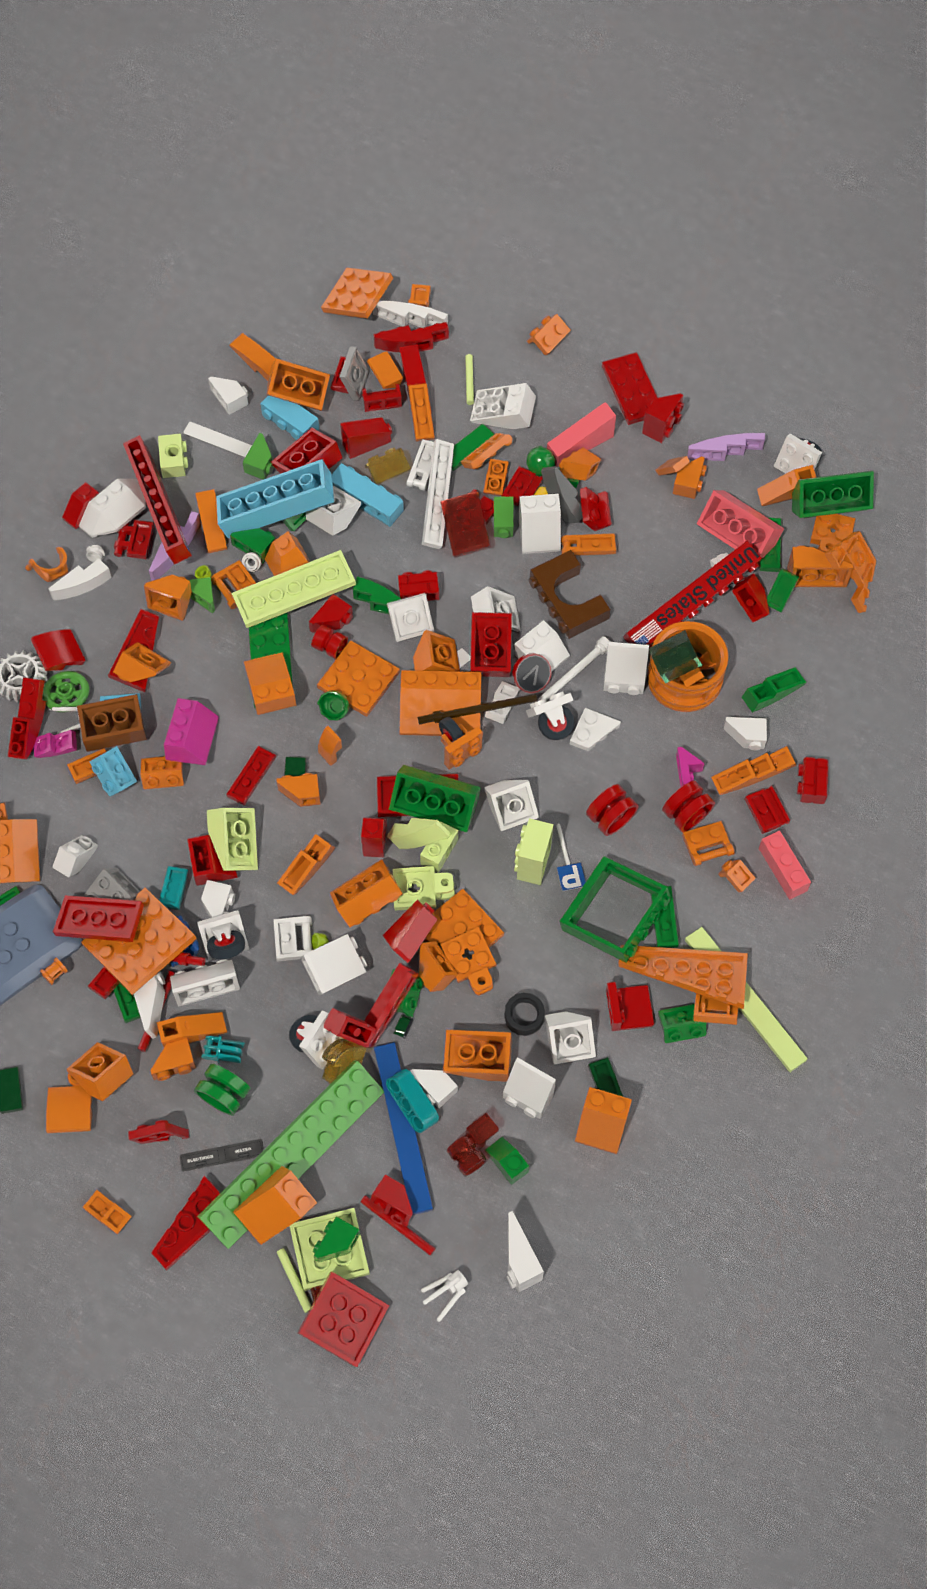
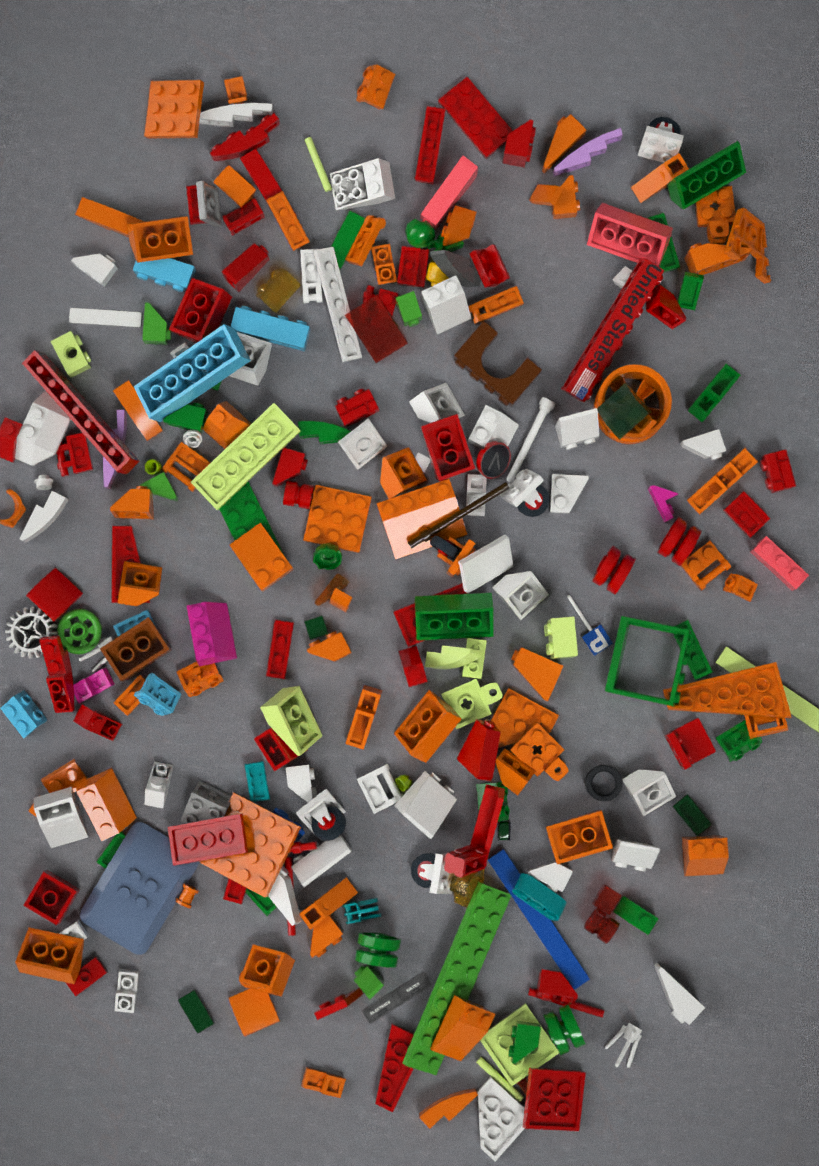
camera: 20 degrees left, 20 degrees up
(43, 777) = (97, 722): none -> red slope
(200, 1121) = (368, 980): none -> bright green slope
(227, 1285) = (447, 1106): none -> orange slope
(274, 1320) = (499, 1118): none -> white plate
(312, 741) = (337, 582): none -> clear orange slope
(382, 1246) = (564, 1029): none -> green wheel
(486, 759) = (486, 563): none -> white tile
(499, 882) = (537, 671): none -> orange slope
(579, 395) = (430, 145): none -> red plate
(709, 426) = (566, 136): none -> orange slope

